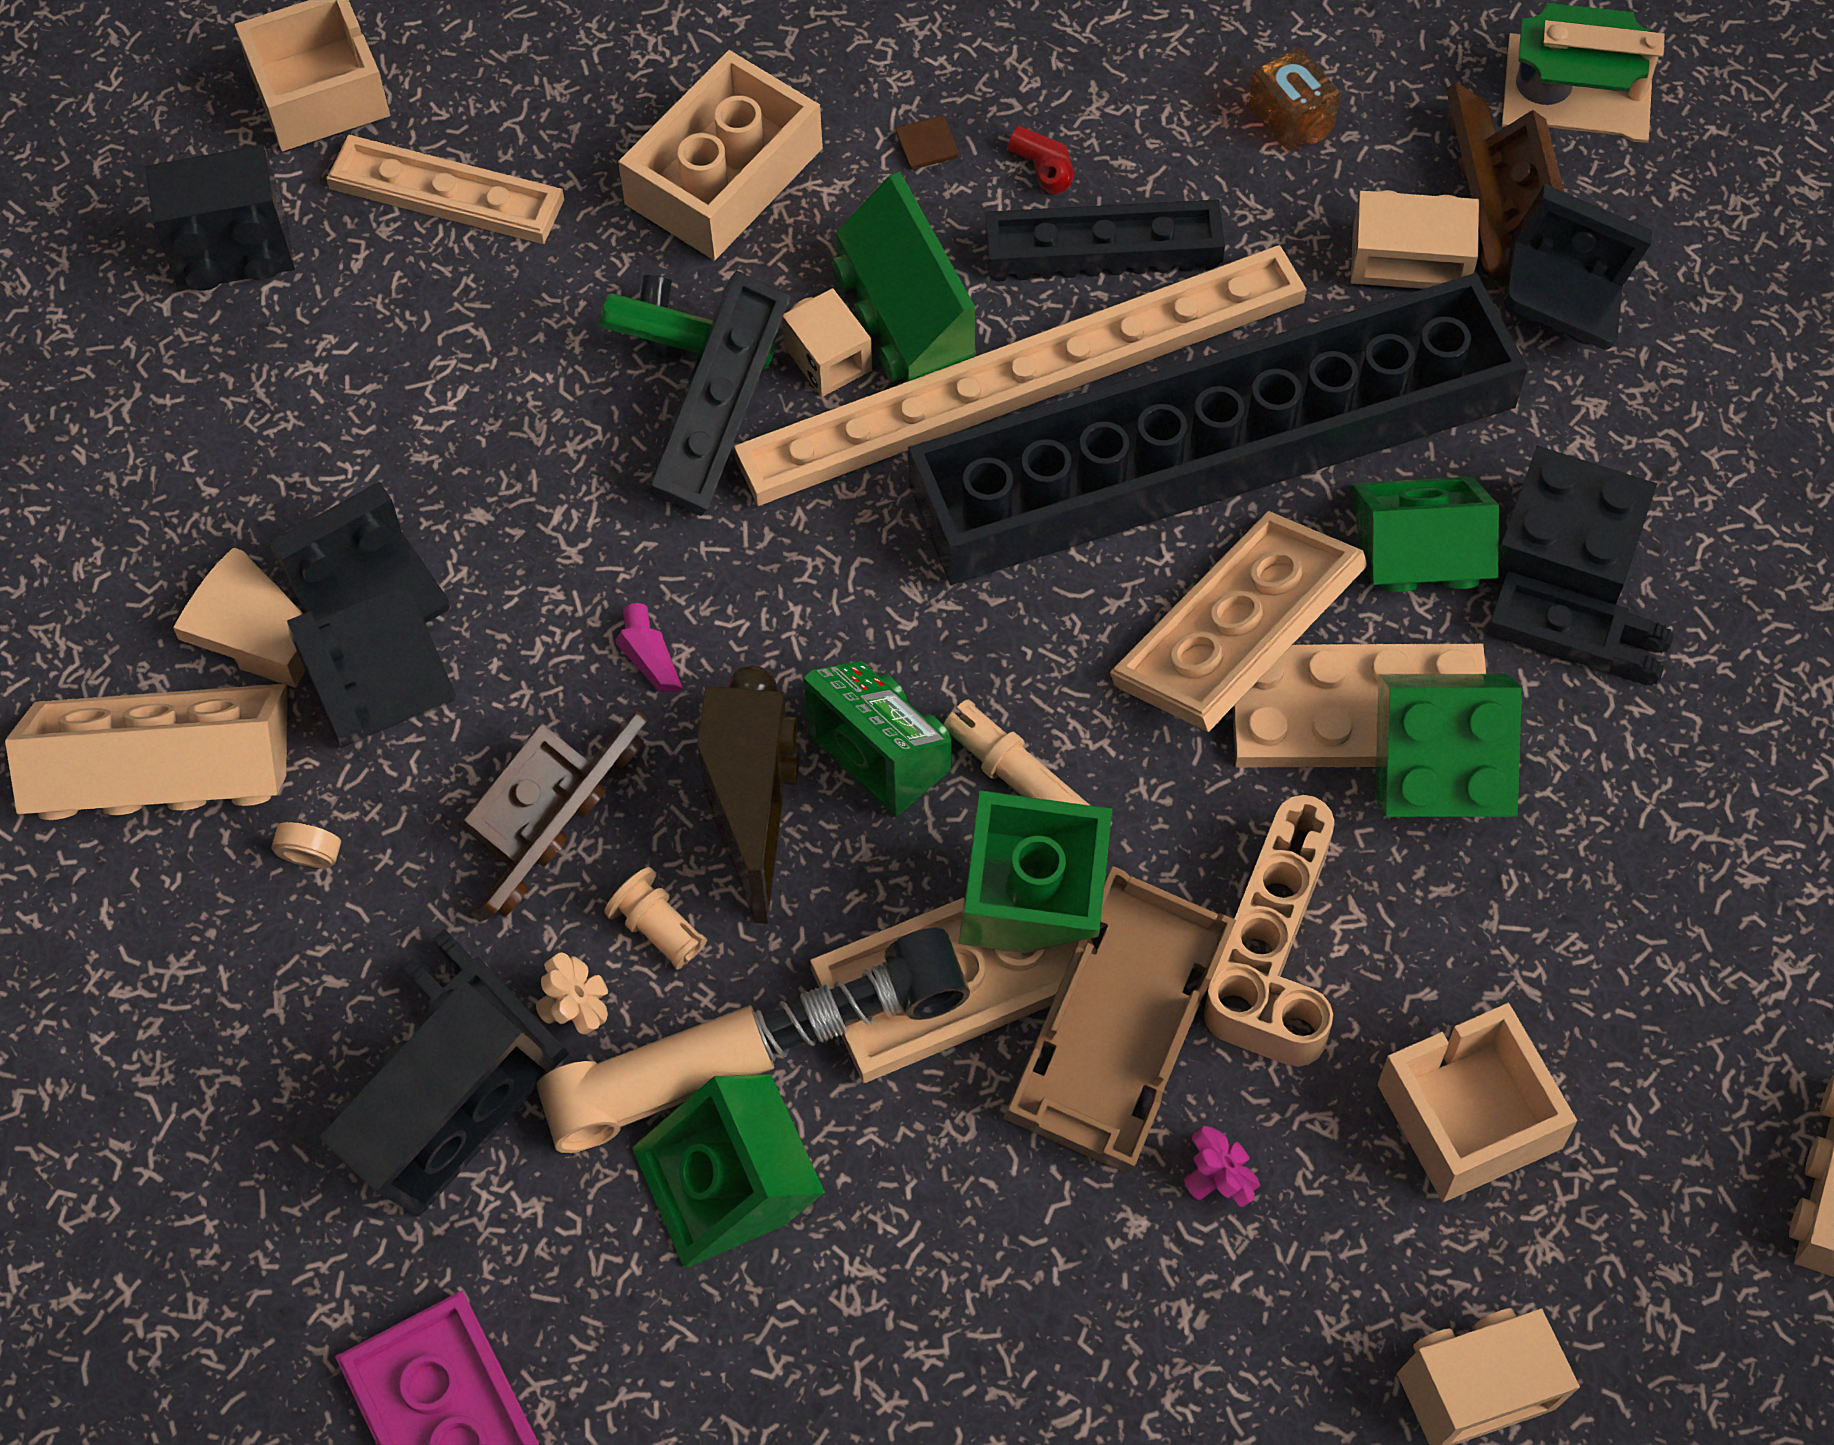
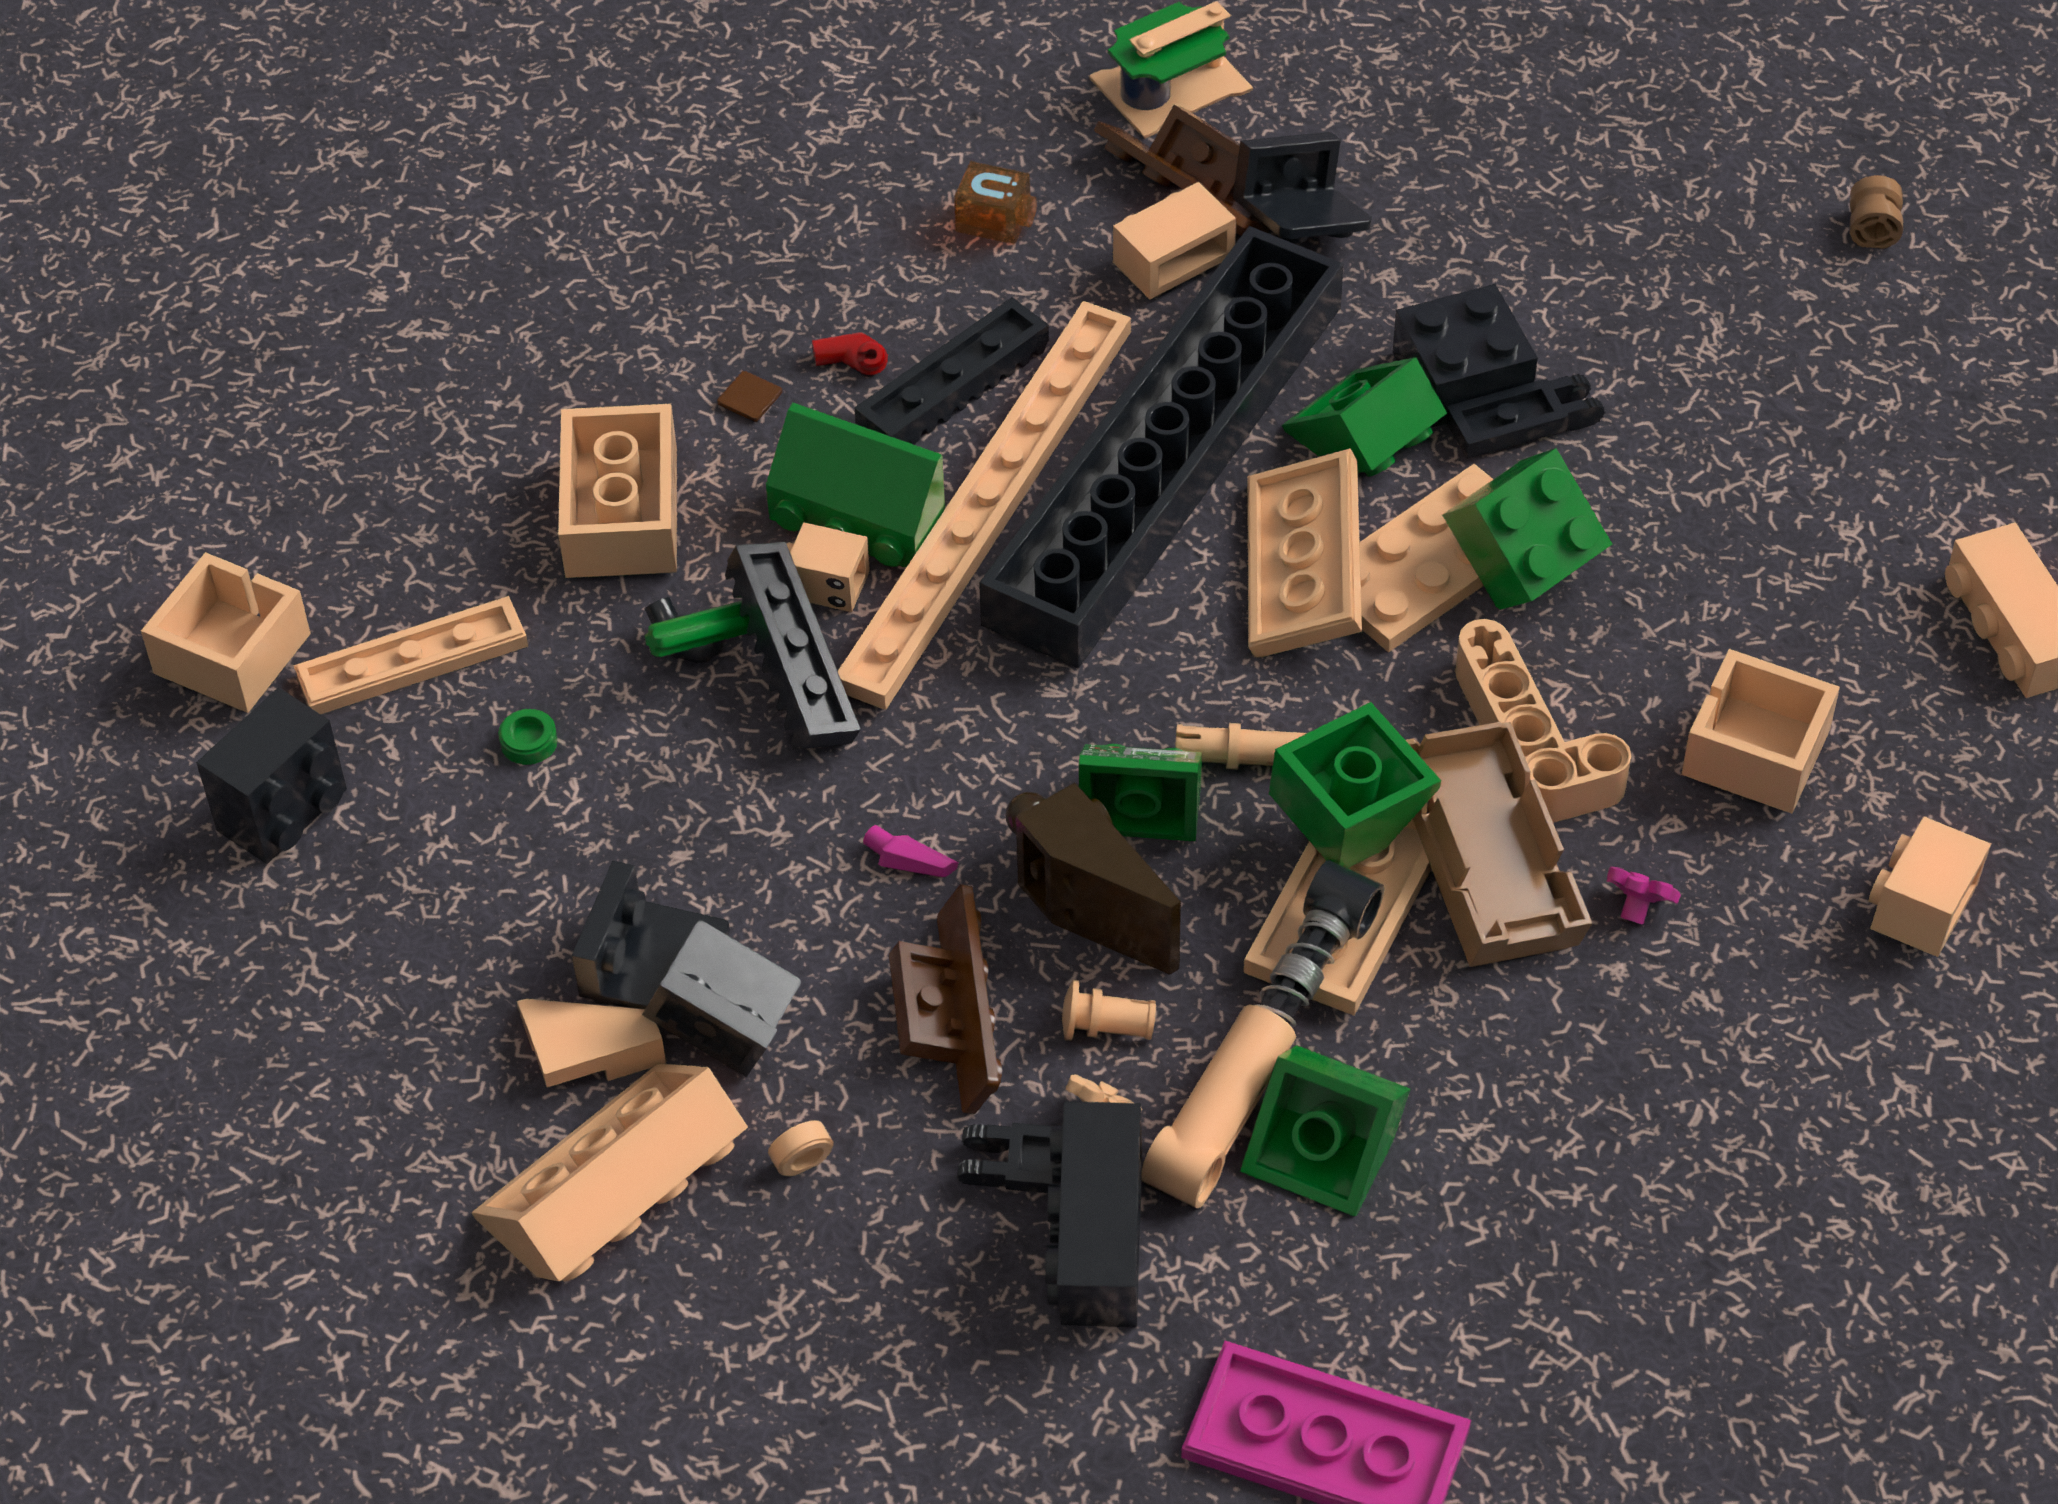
camera: 40 degrees left, 10 degrees down
(463, 323) = (528, 736): none -> green tile

